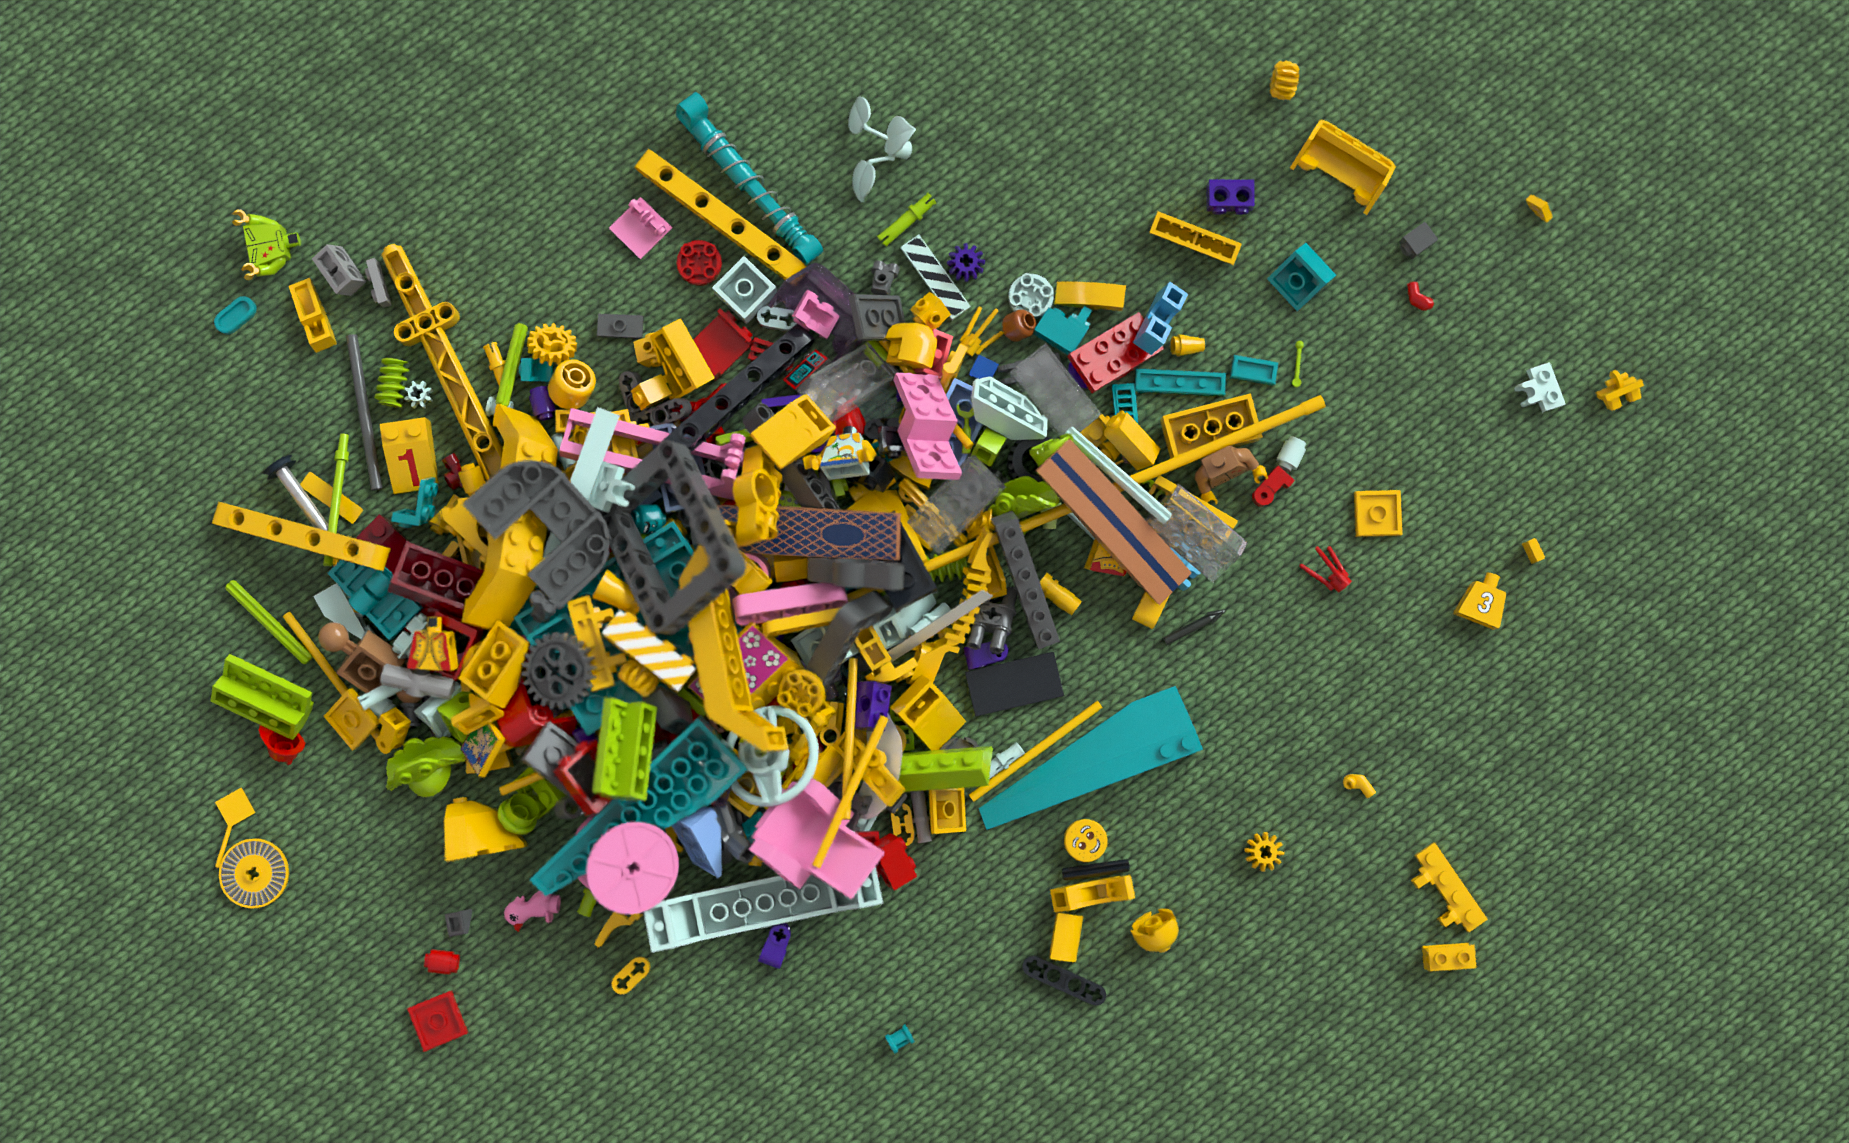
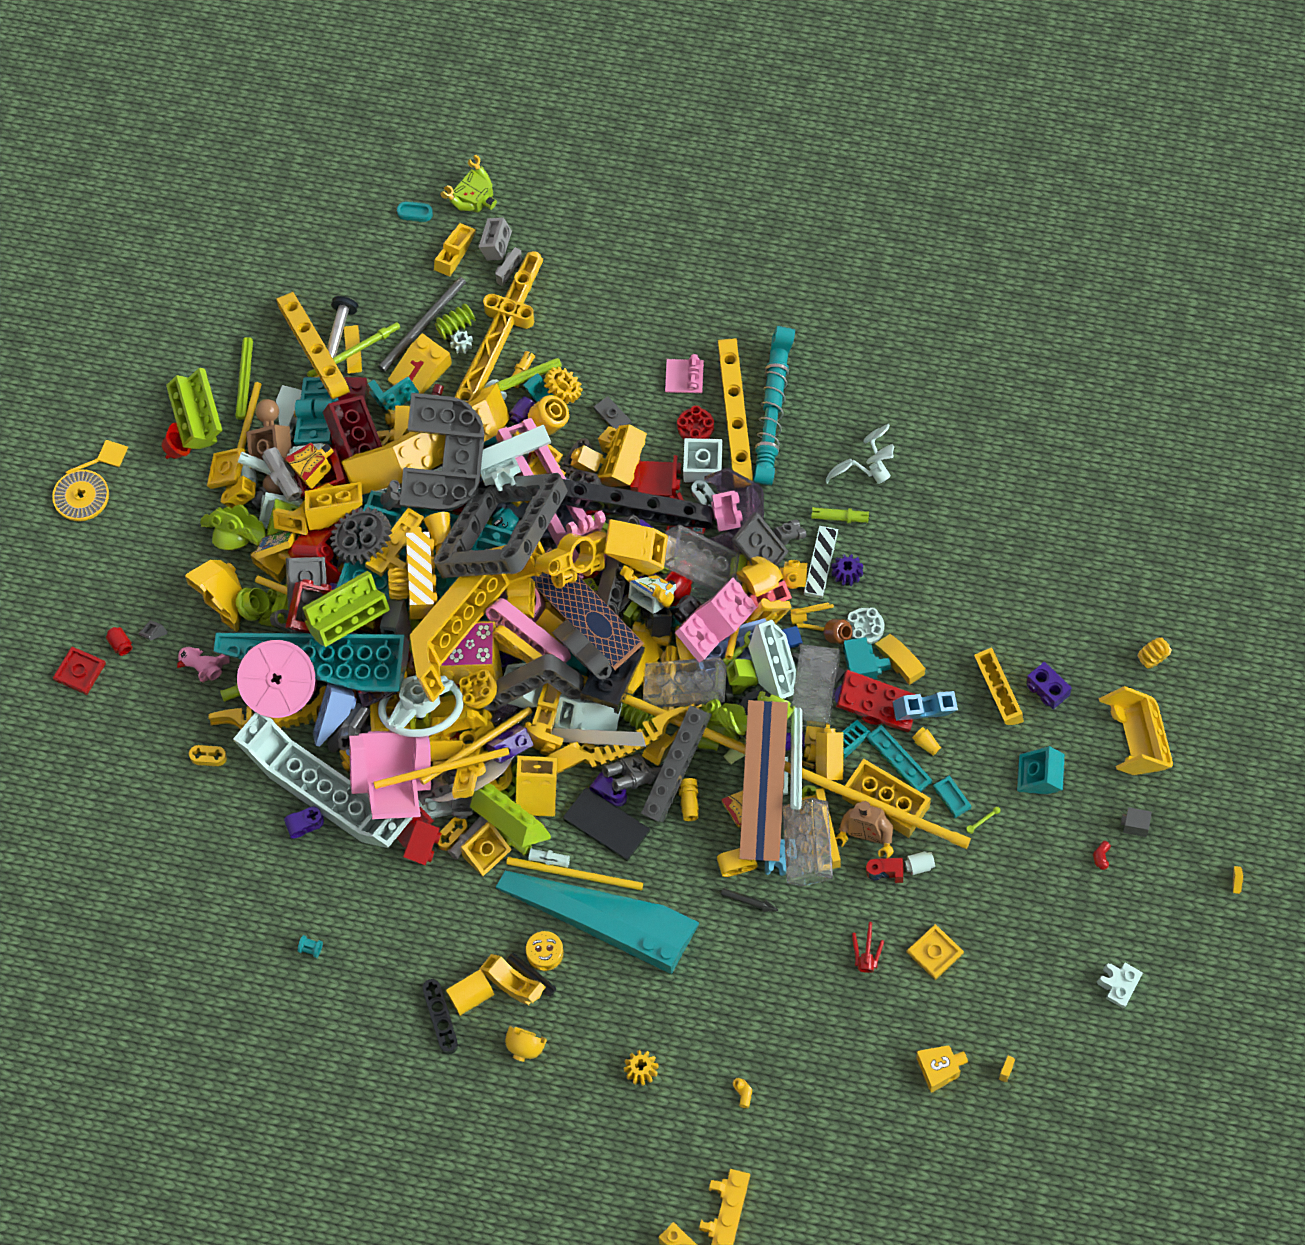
camera: 55 degrees right, 20 degrees down
(1617, 386) = (1178, 1037): yellow hips -> none

